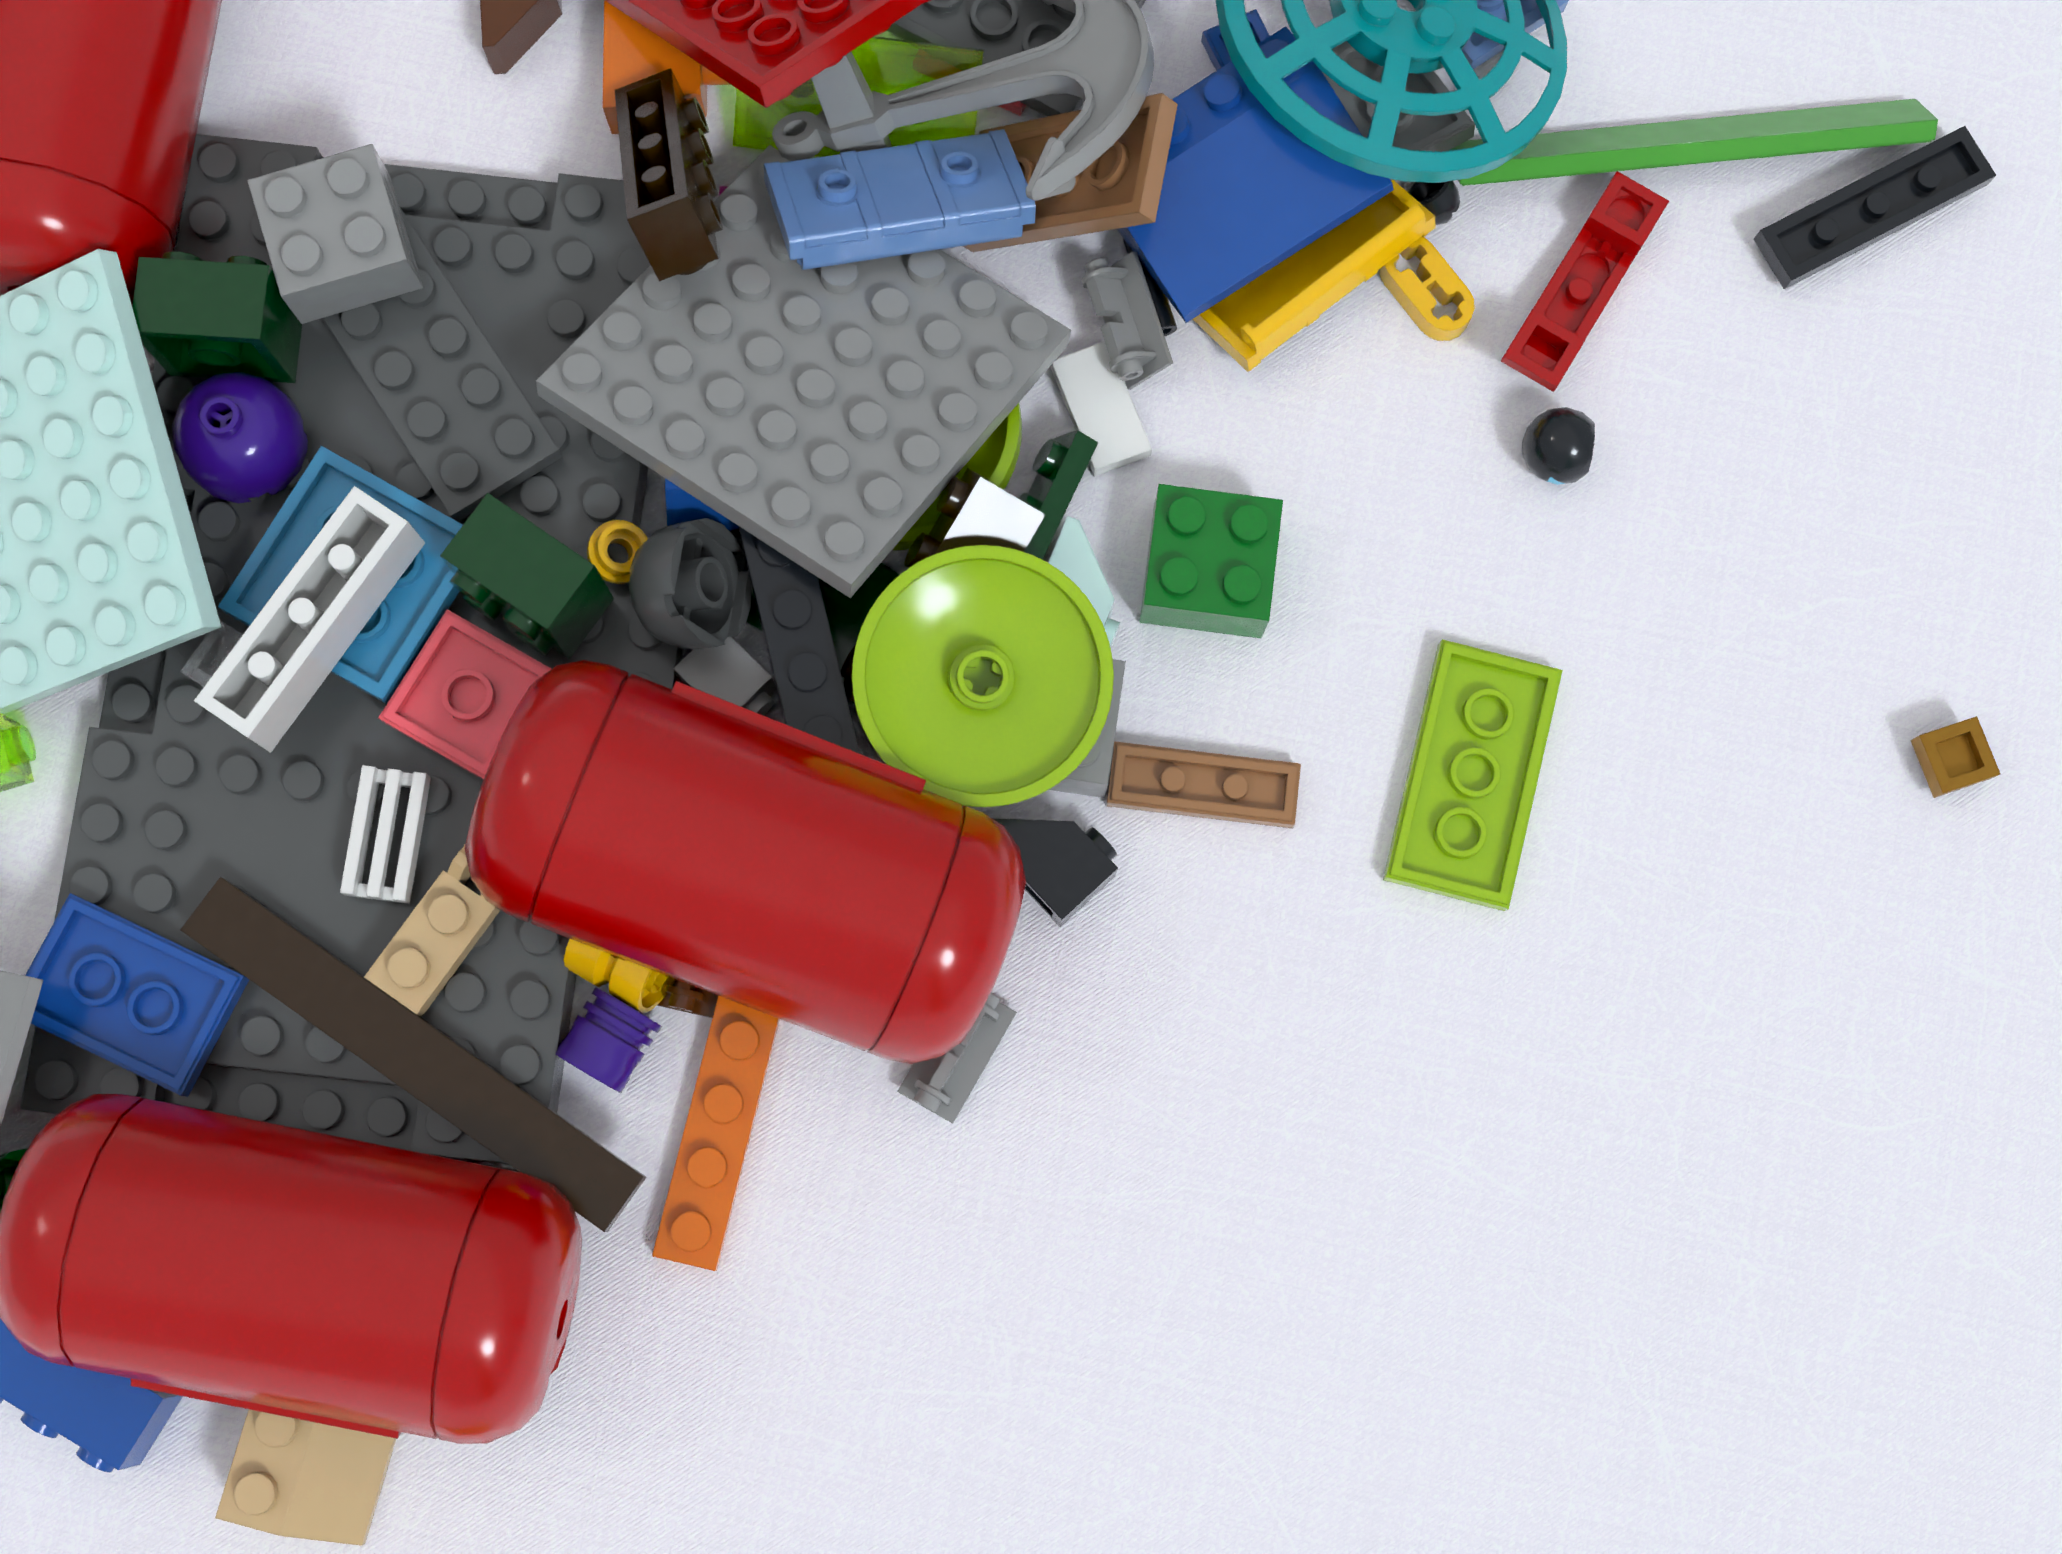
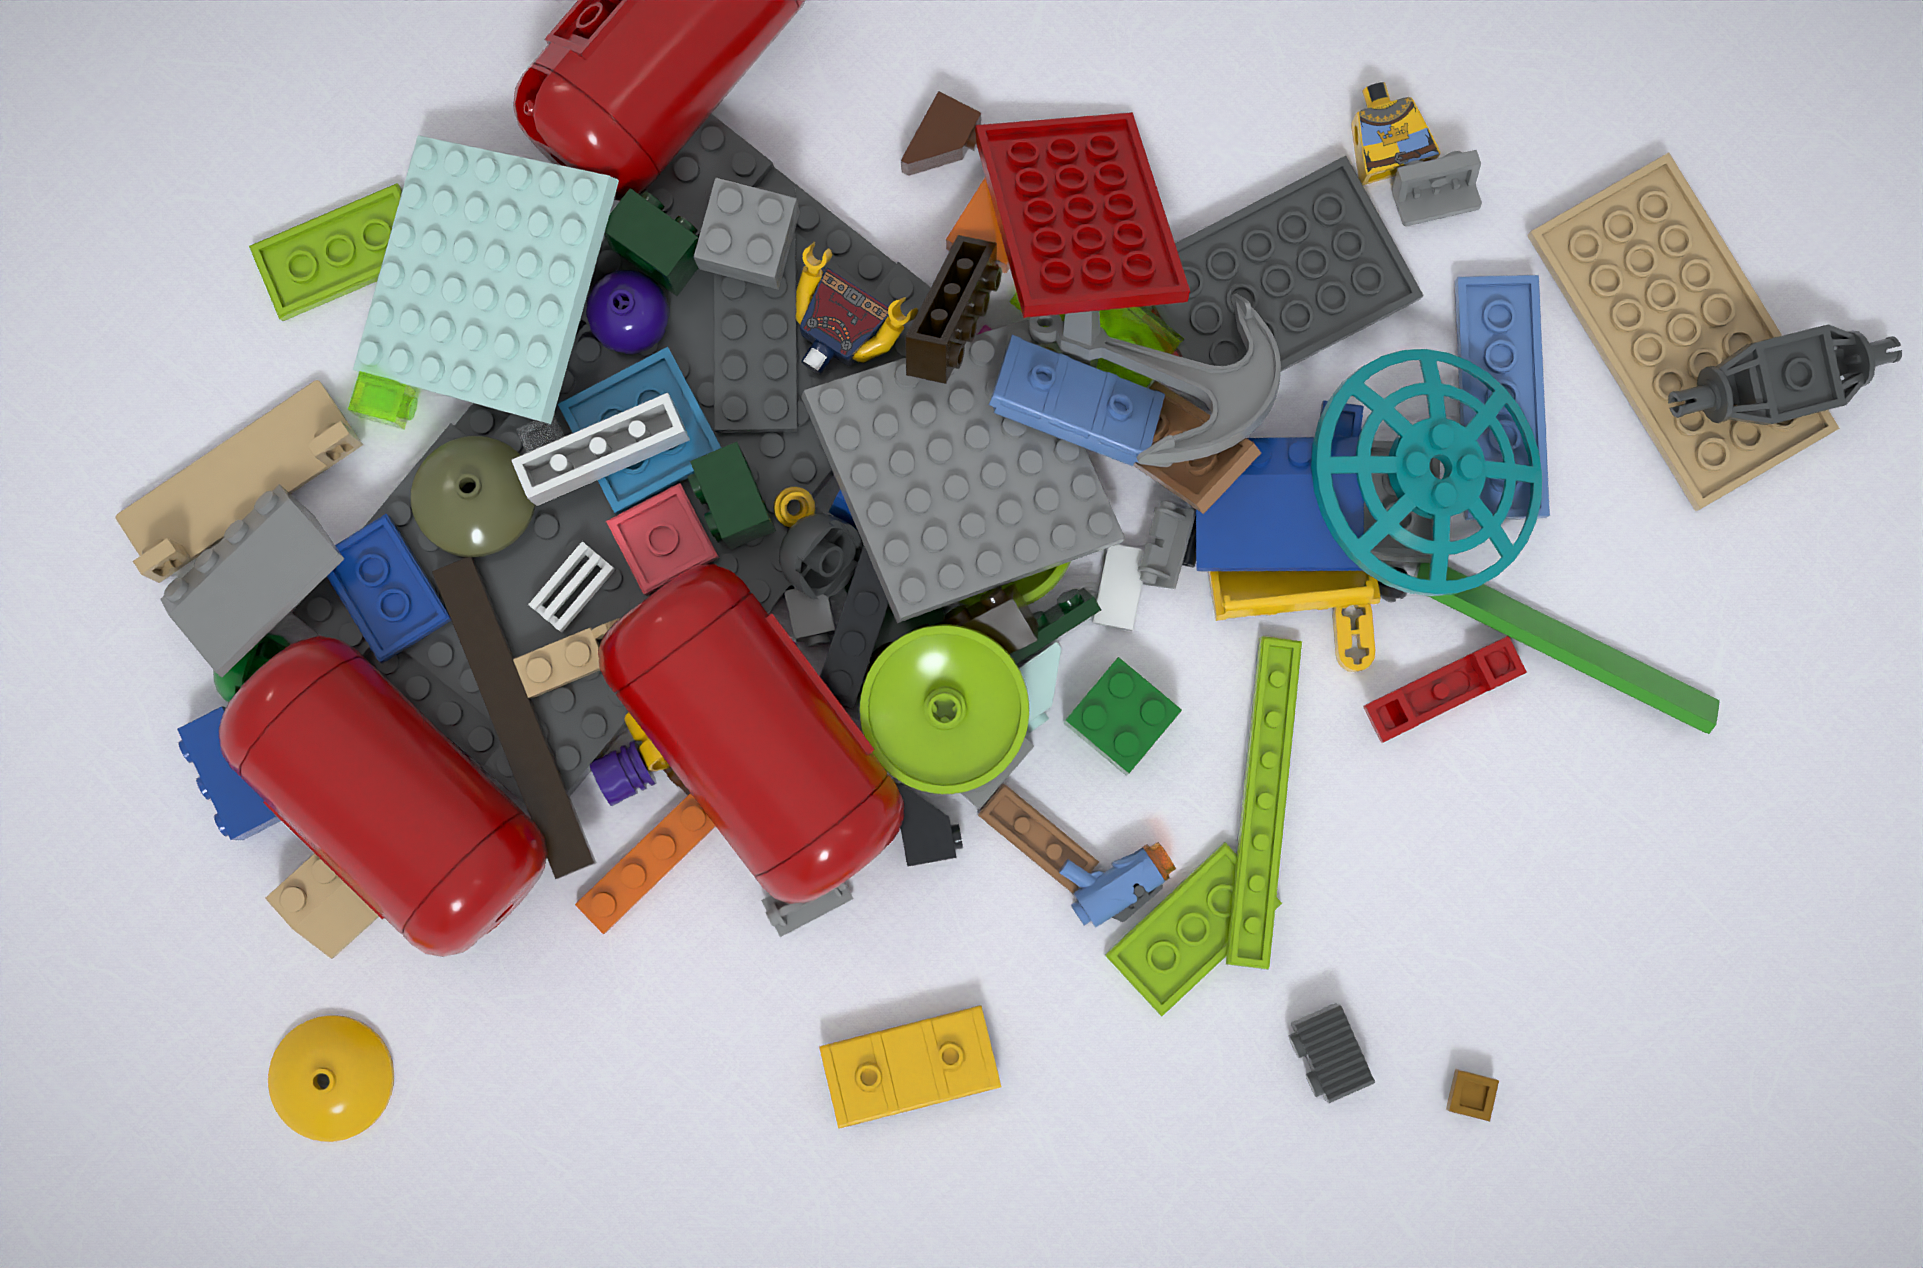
camera: 40 degrees right, 5 degrees up
(196, 826) = (474, 521): none -> olive dish
(531, 273) = (842, 317): none -> torso
(1232, 1180) = (910, 1066): none -> yellow container
(1351, 778) = (1120, 889): none -> medium blue piece
(1459, 562) = (1264, 803): none -> lime tile
(1559, 445) = (1365, 774): black piece -> none
(1750, 816) = (1331, 1052): none -> dark grey brick
(1874, 207) = (1648, 750): black plate -> none

